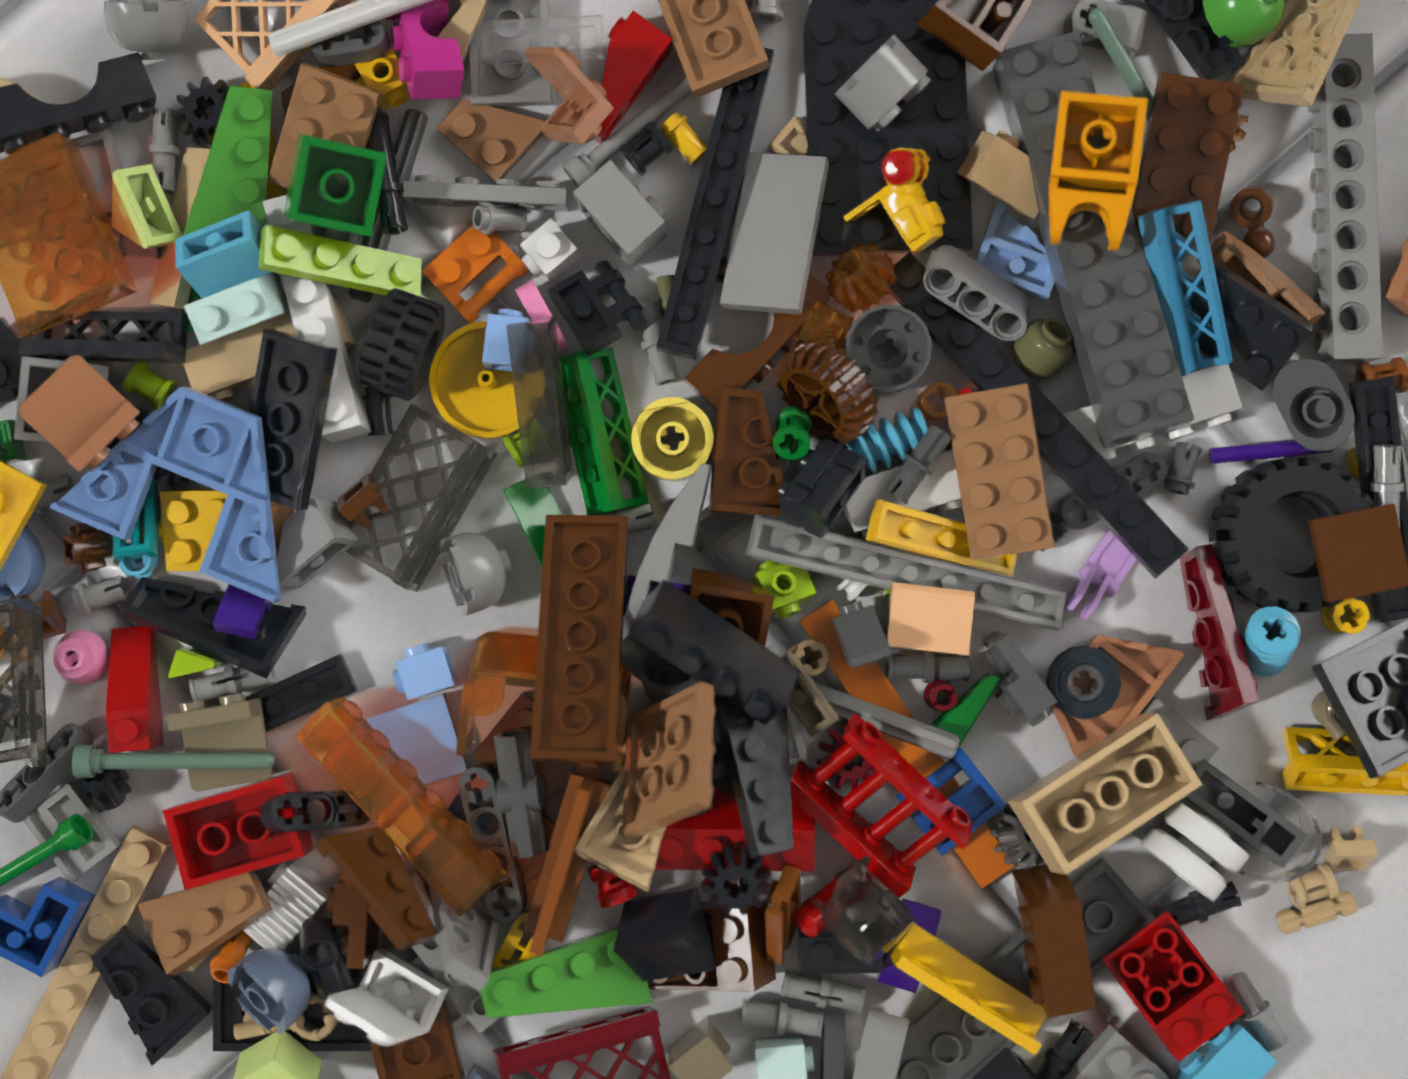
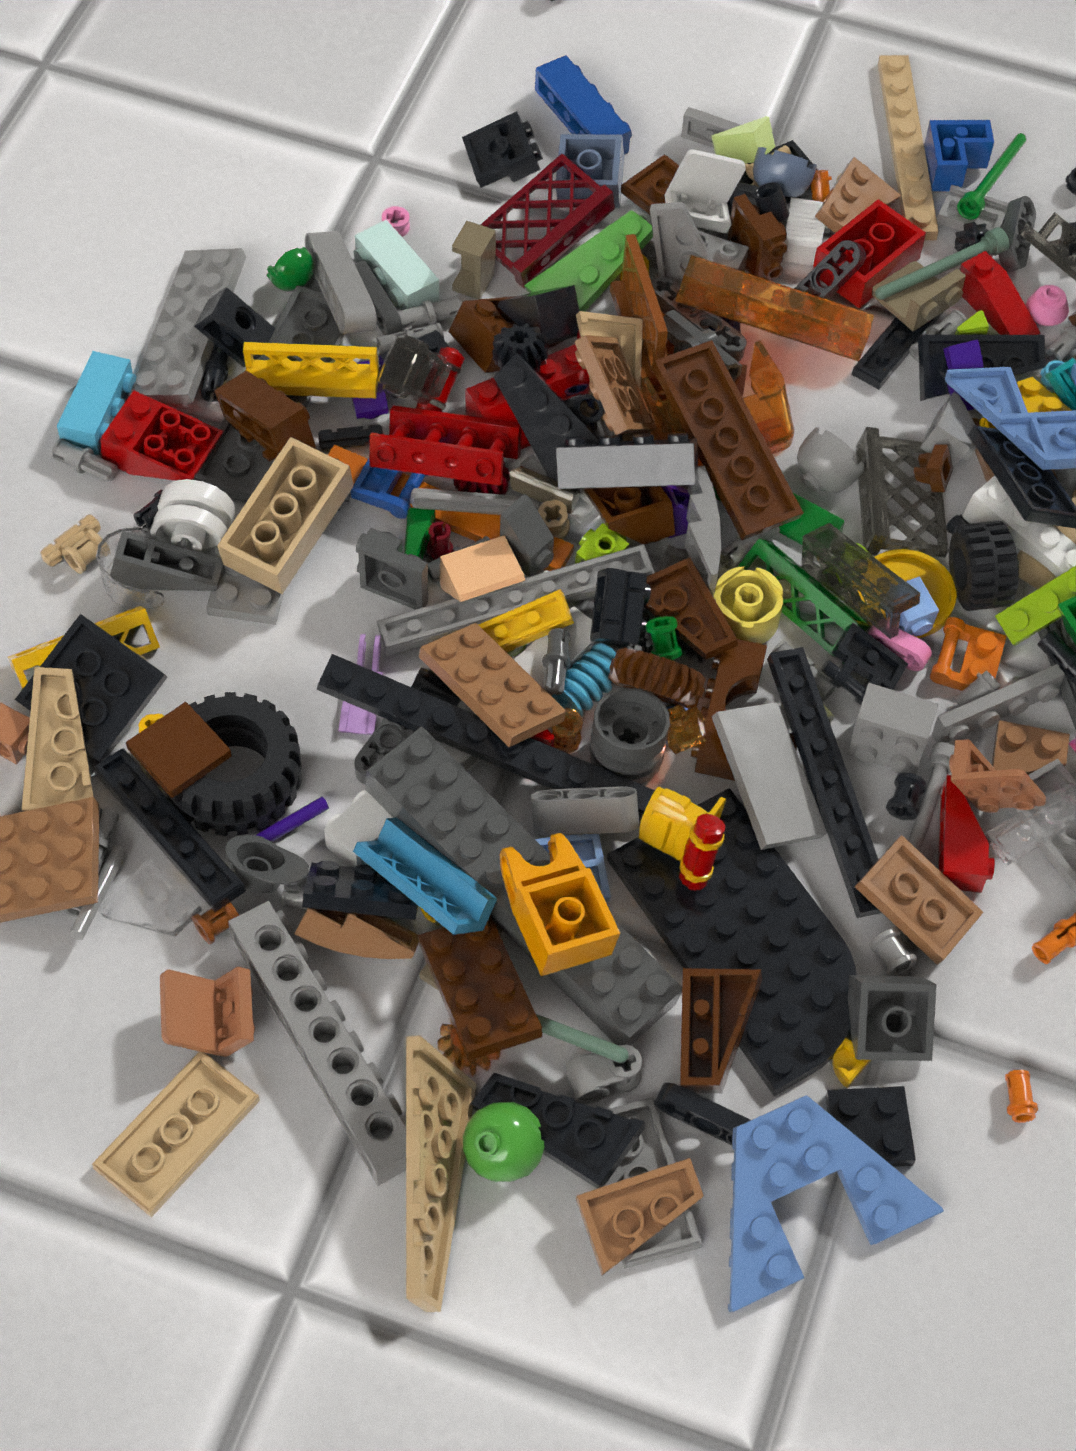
camera: 150 degrees right, 30 degrees down
(157, 1004) = (837, 148): black wing -> none
(378, 872) = (756, 246): reddish brown wing -> none
(424, 671) = (814, 396): light blue brick -> none
(424, 737) = (795, 361): light blue tile -> none
(548, 251) = (927, 681): white brick -> none
(684, 138) = (884, 820): yellow pin -> none
(780, 926) = (478, 360): dark orange plate -> none
(790, 140) = (800, 860): tan tile -> none
(861, 277) = (683, 773): clear orange gear -> none
(882, 82) = (760, 907): light grey brick -> none
(956, 892) = (347, 436): none -> black axle
(1002, 171) = (631, 901): tan slope -> none
(1043, 348) = (513, 796): olive head -> none
(1098, 667) = (346, 579): black bush -> none
(1141, 672) = (314, 608): nougat wing -> none
(1181, 470) = (342, 769): dark grey pin -> none
(1216, 633) = (244, 661): dark red wing -> none
(1257, 237) = (396, 994): reddish brown plate -> none
(1270, 640) = (212, 673): medium azure piece -> none
(1349, 854) = (68, 582): tan tile -> none
(1387, 476) = (175, 824): light grey pin -> none

